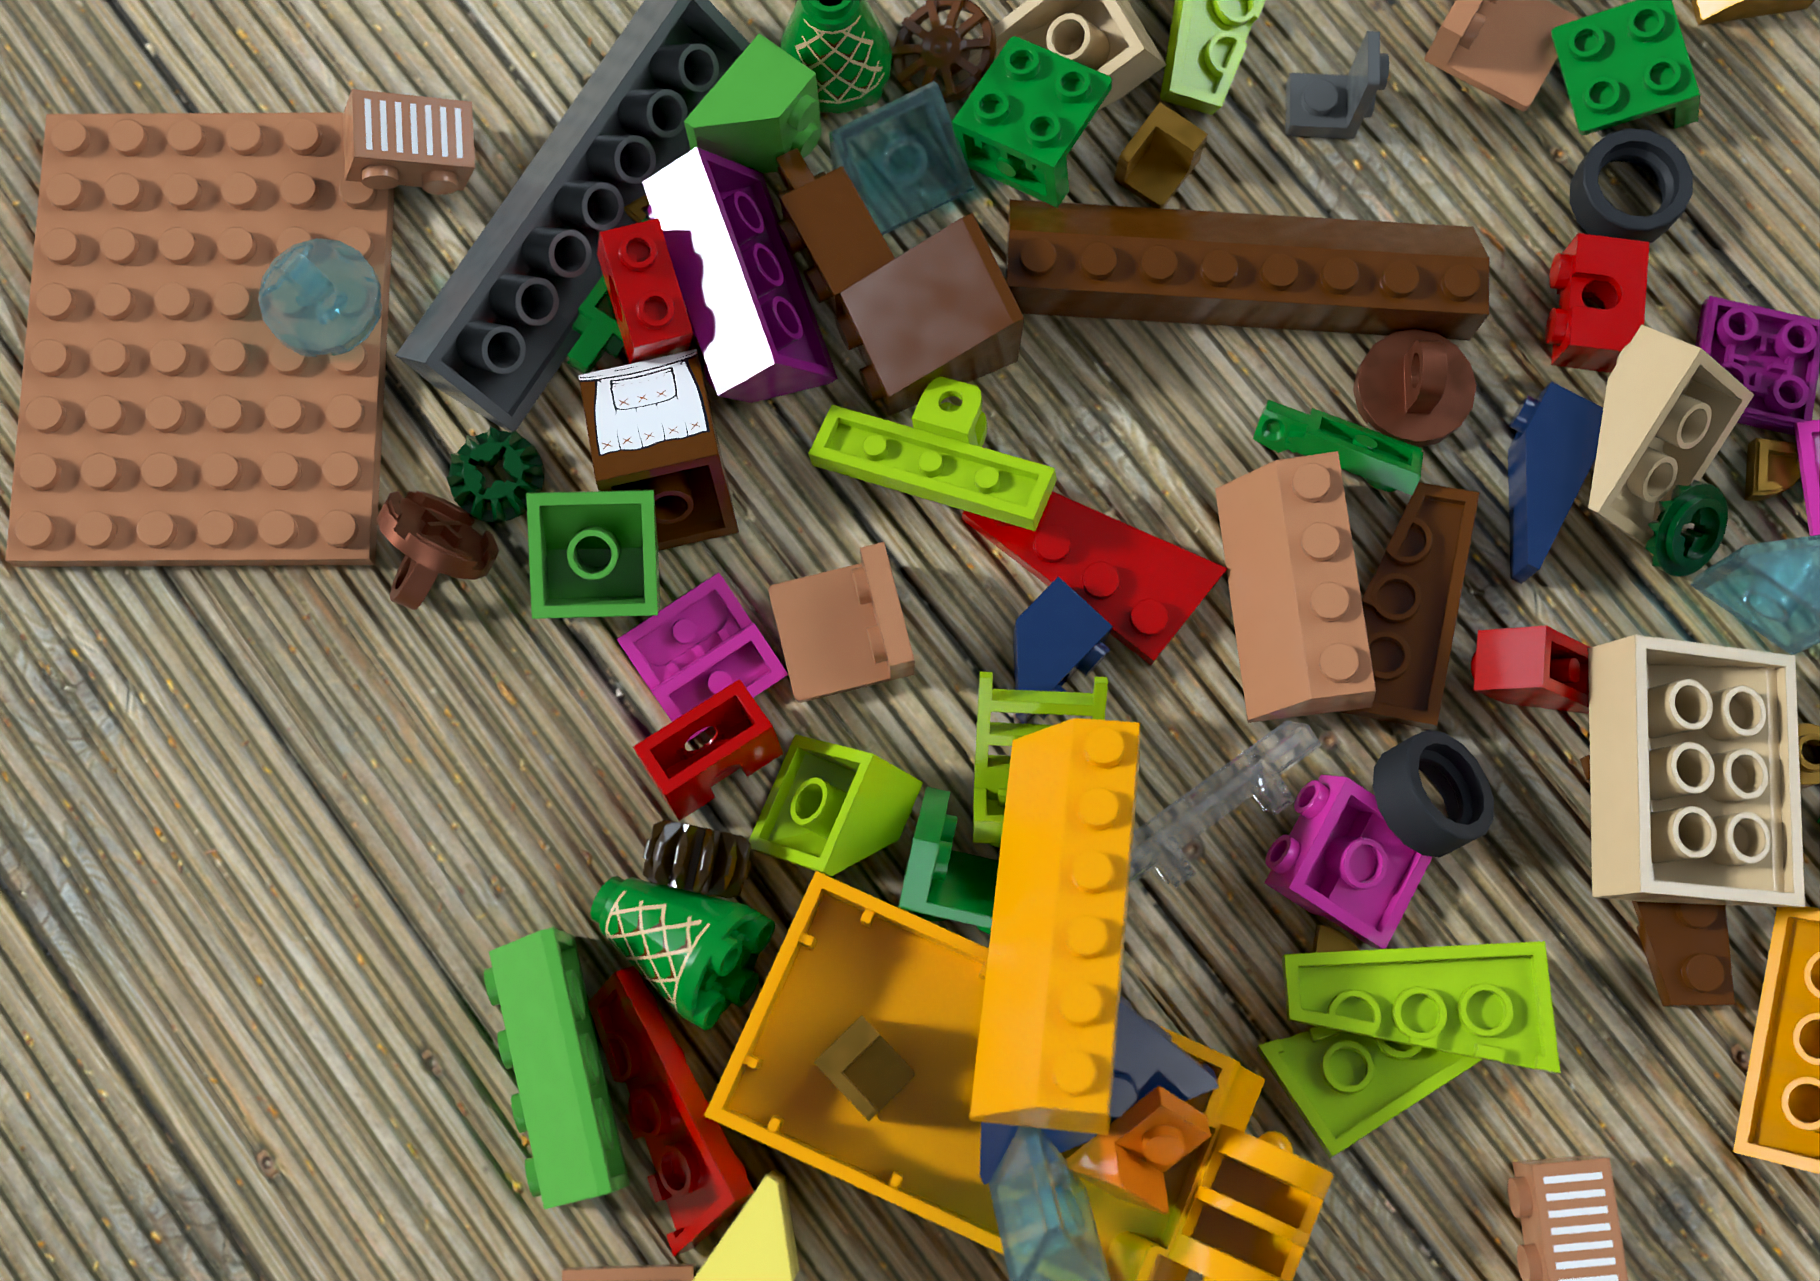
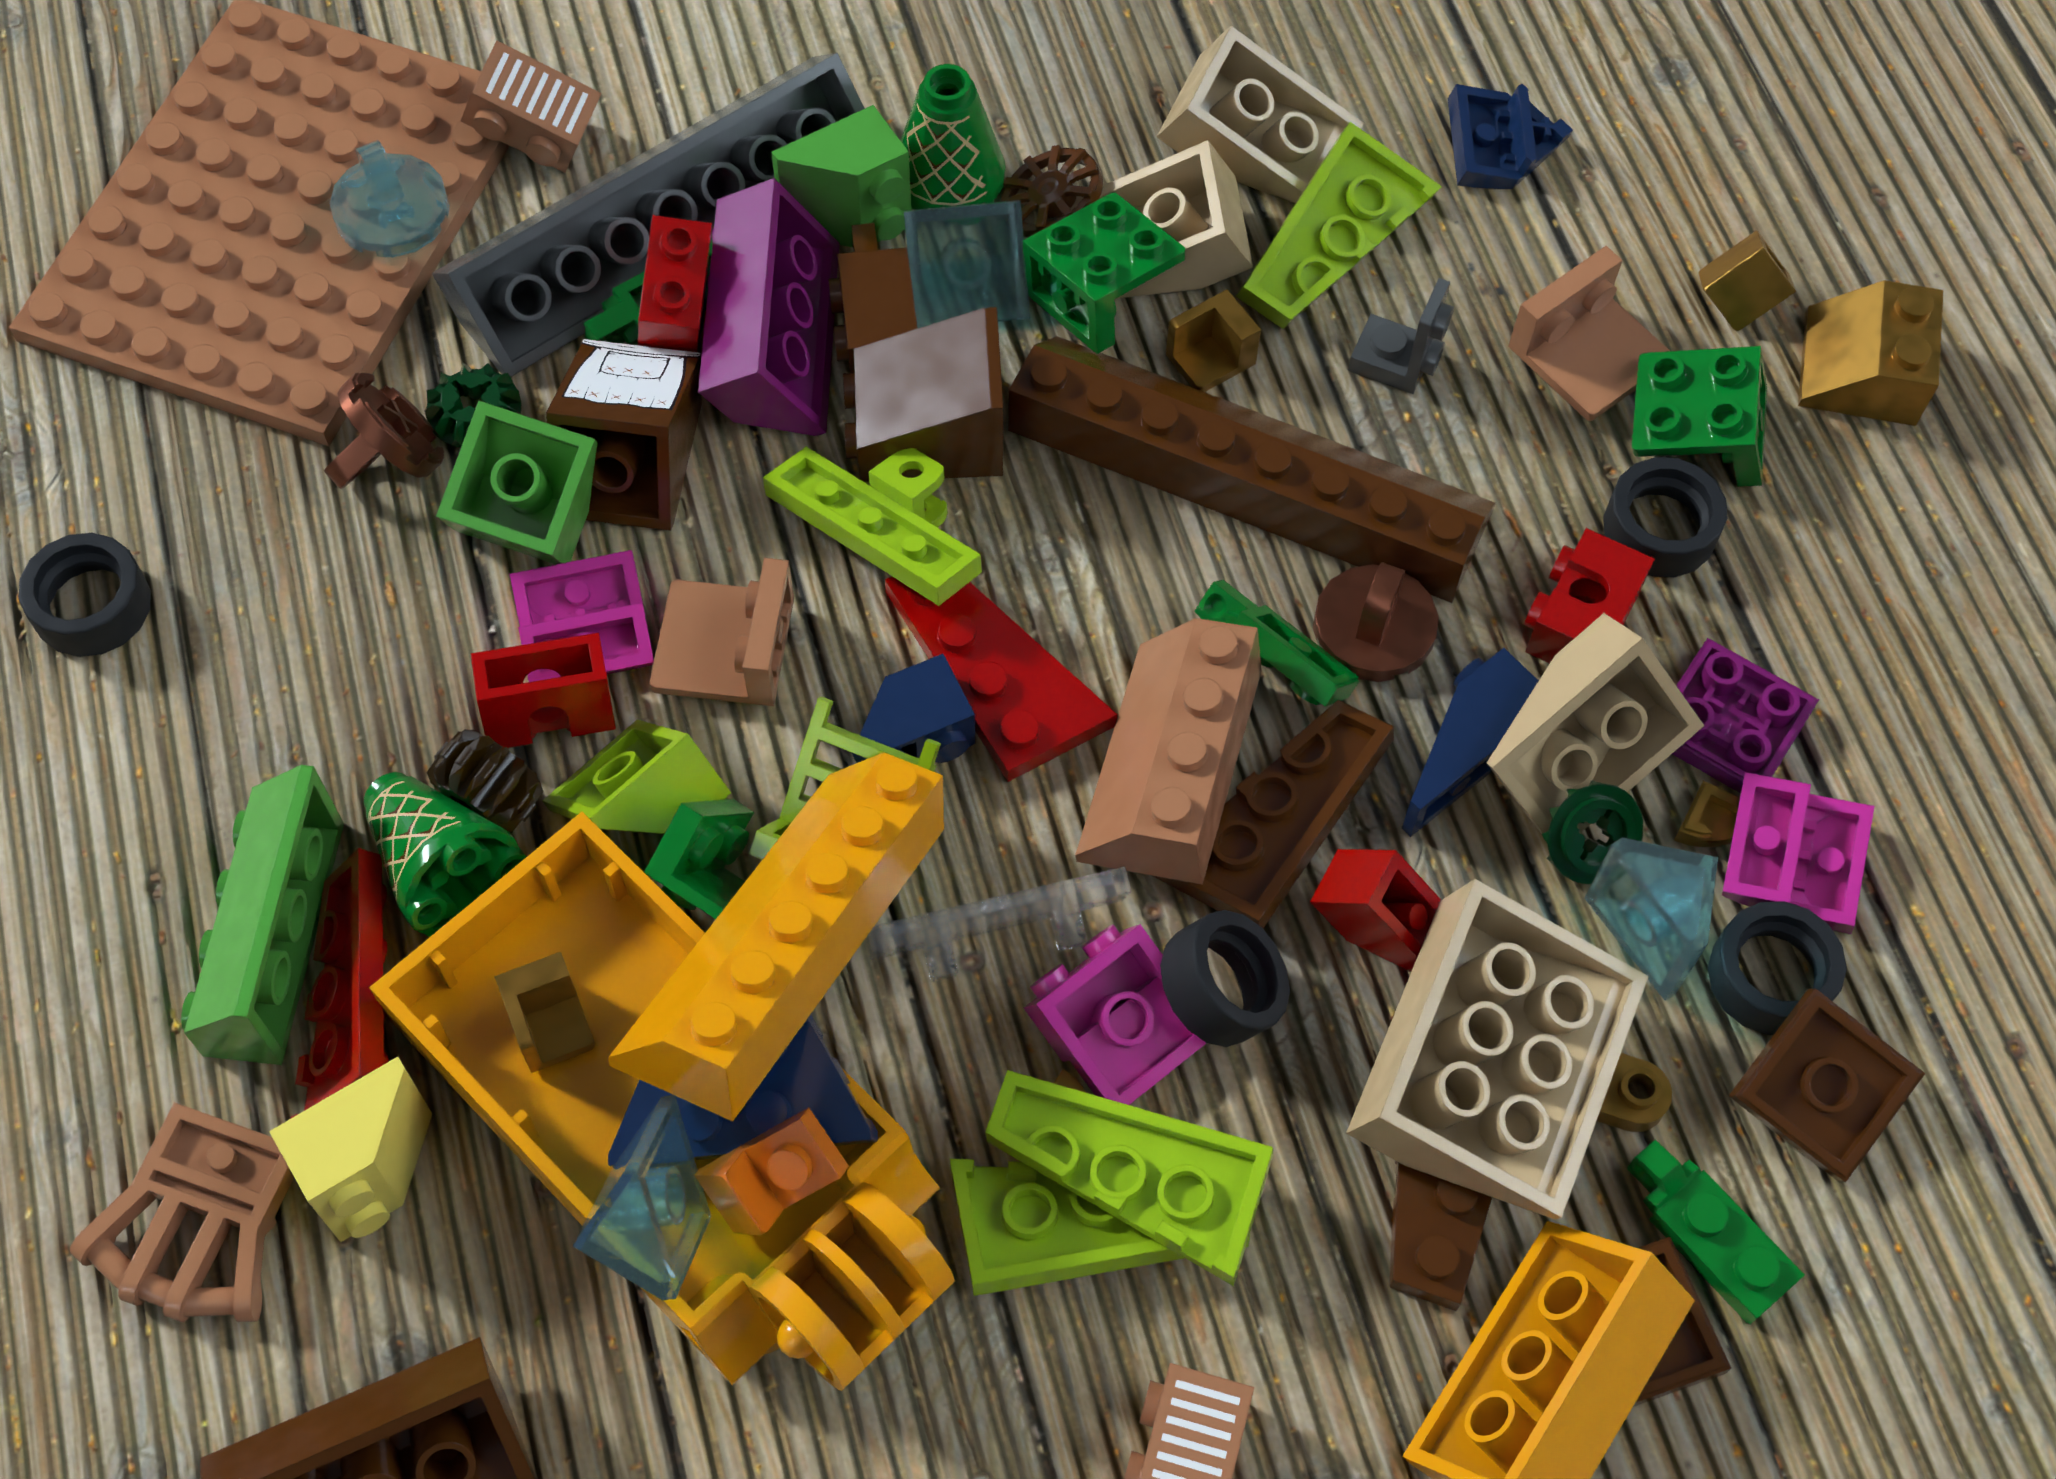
camera: 20 degrees right, 15 degrees down
(180, 794) = (67, 559): none -> black tyre

